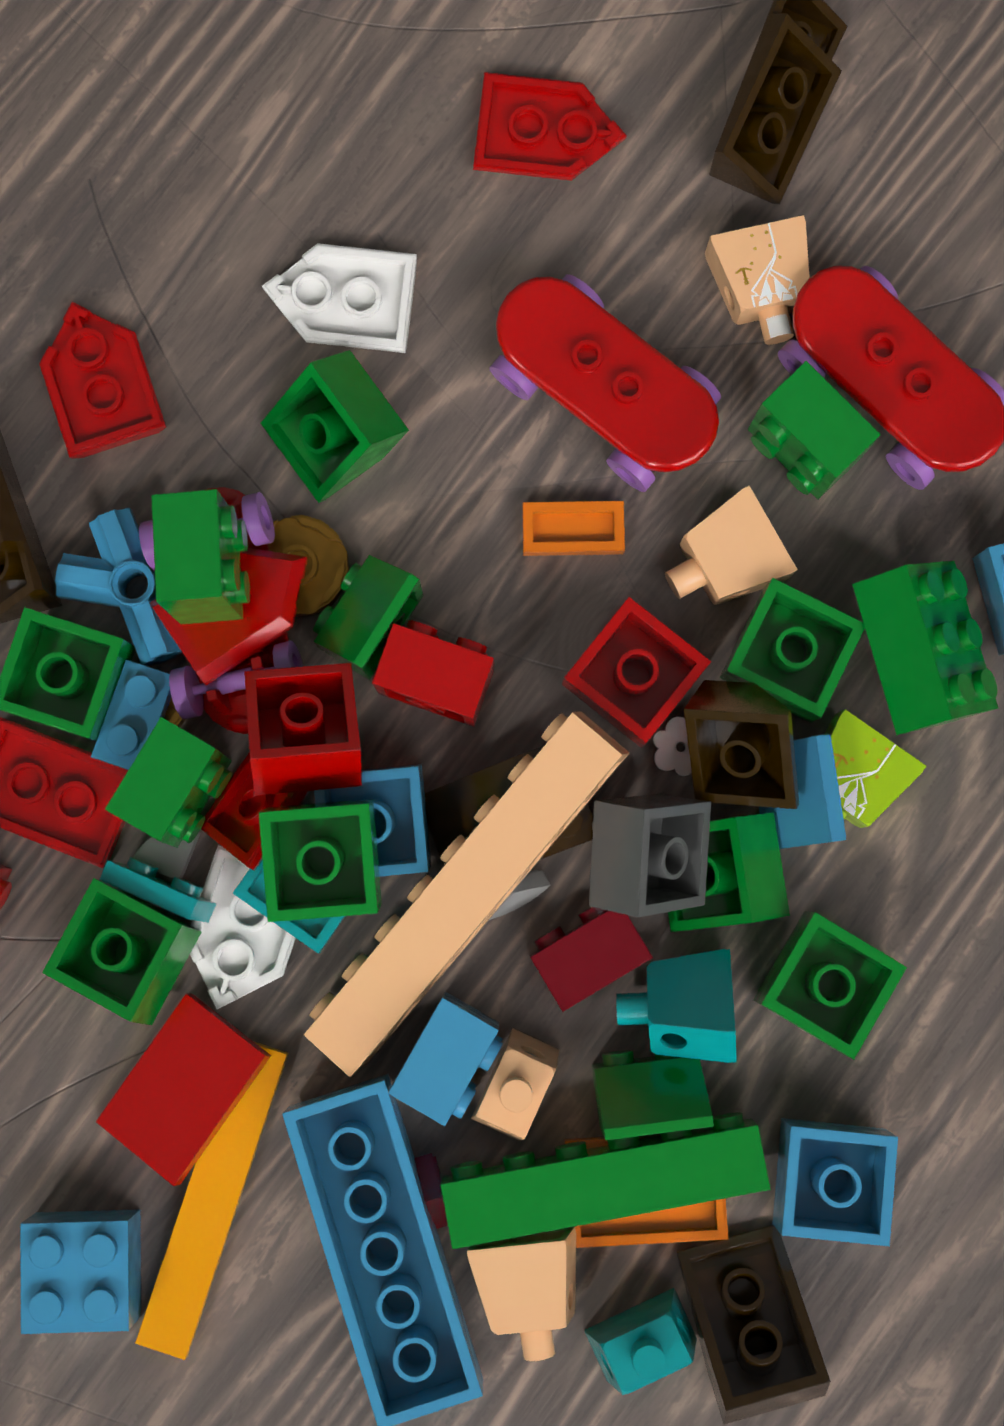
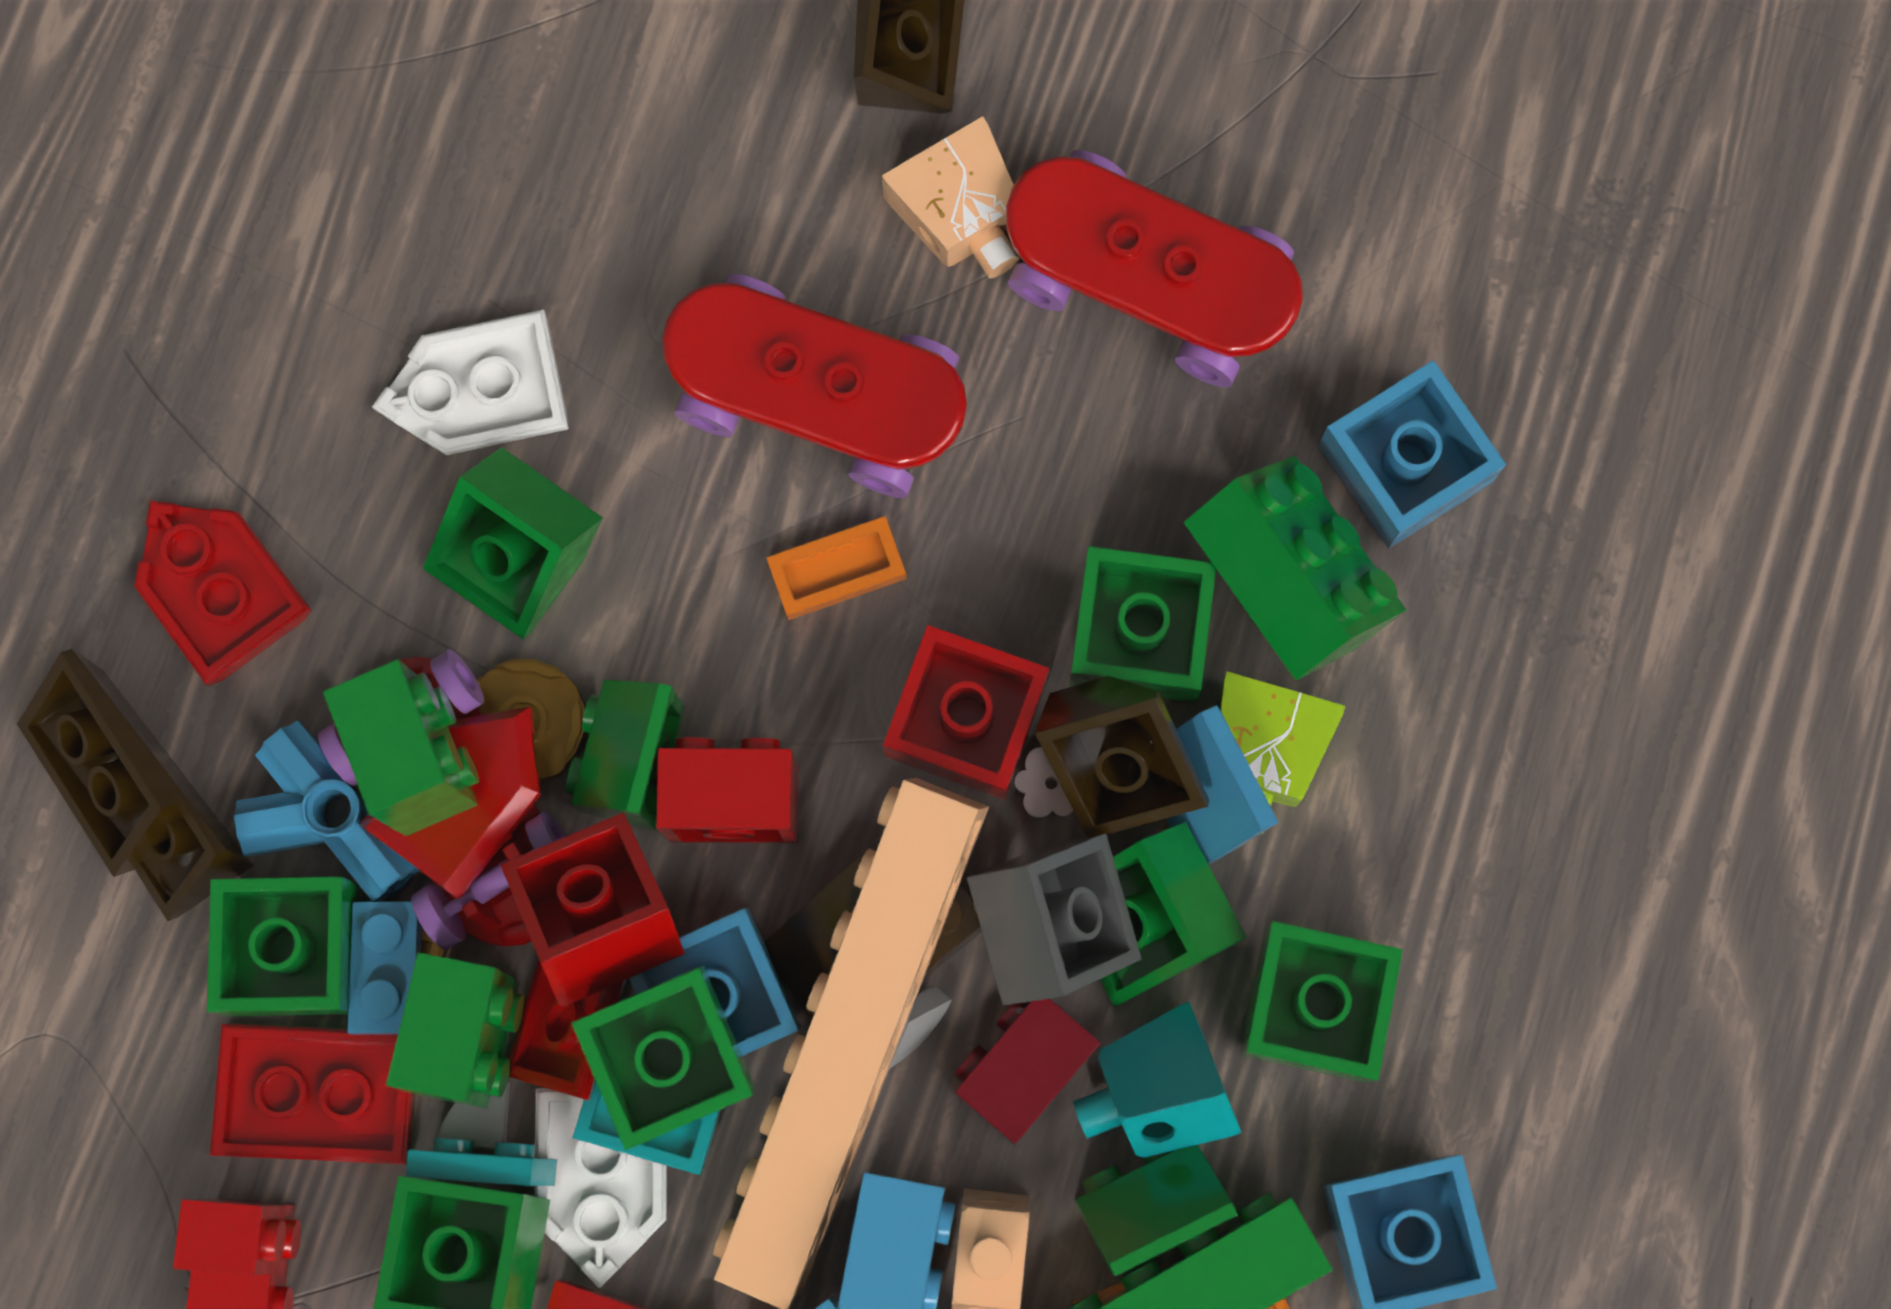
camera: 15 degrees left, 5 degrees down
(541, 127) = (642, 115): red tile -> none
(731, 552) = (1032, 534): light nougat torso -> none
(811, 431) = (1076, 362): green brick -> none

